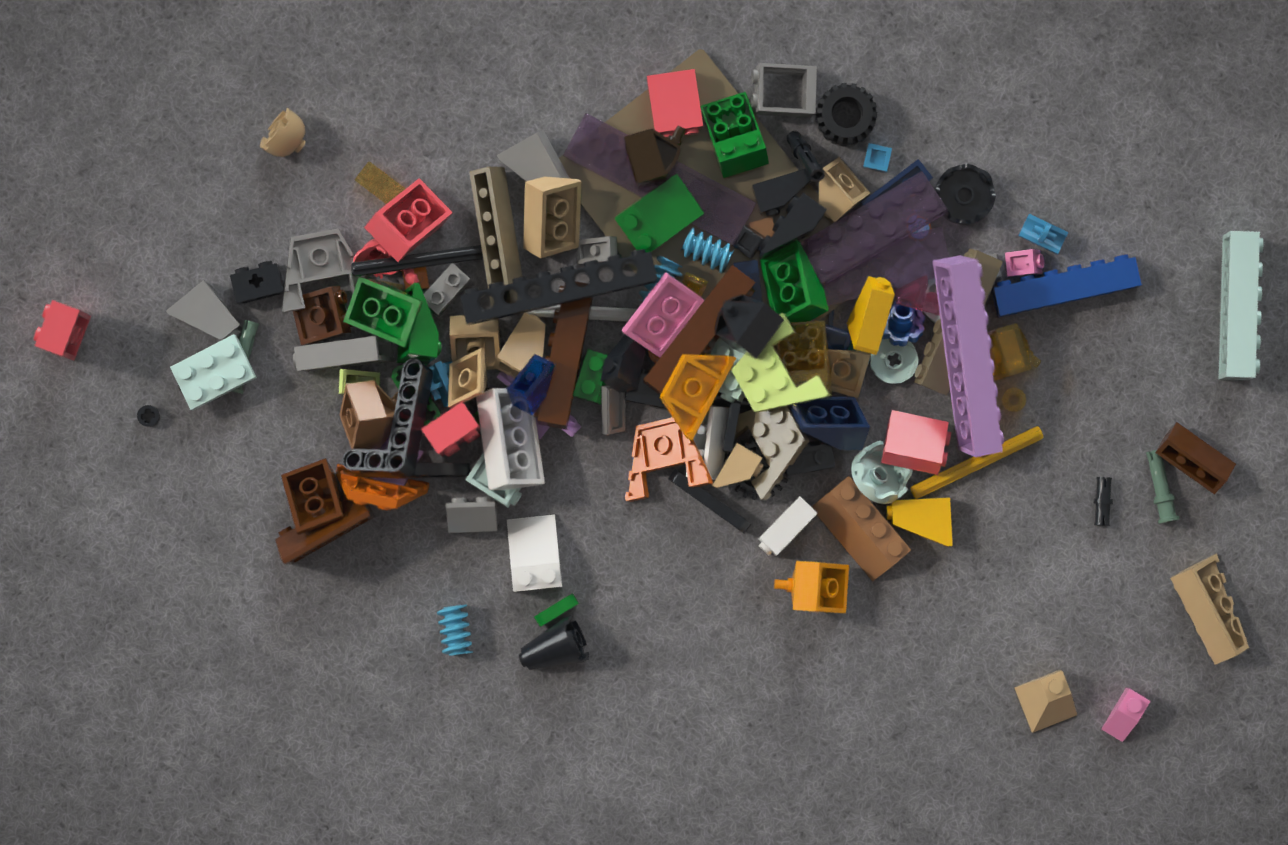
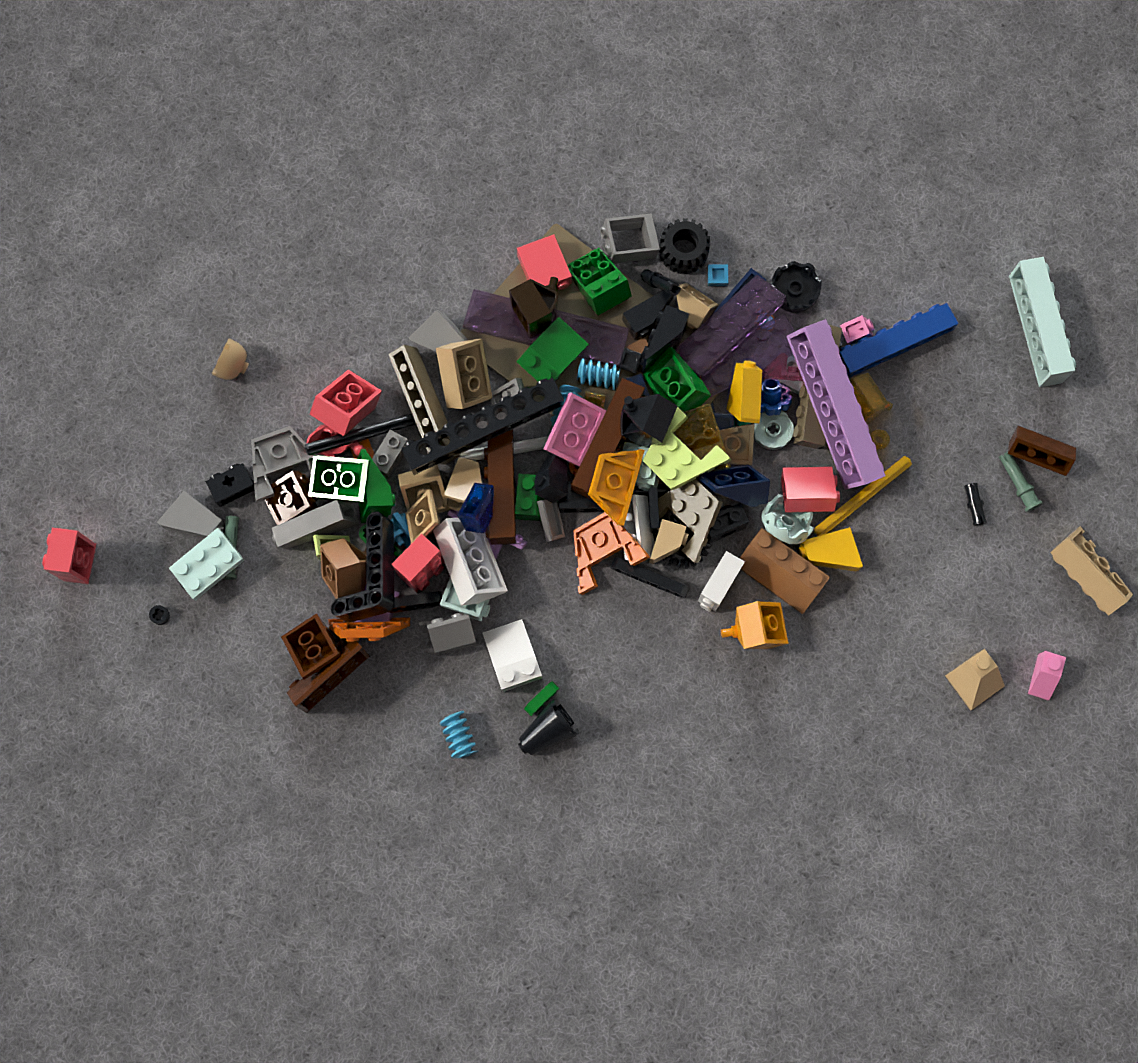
camera: 15 degrees left, 10 degrees down
(378, 183) = (312, 382): clear yellow tile -> none
(1043, 234) = (867, 303): dark azure hips -> none

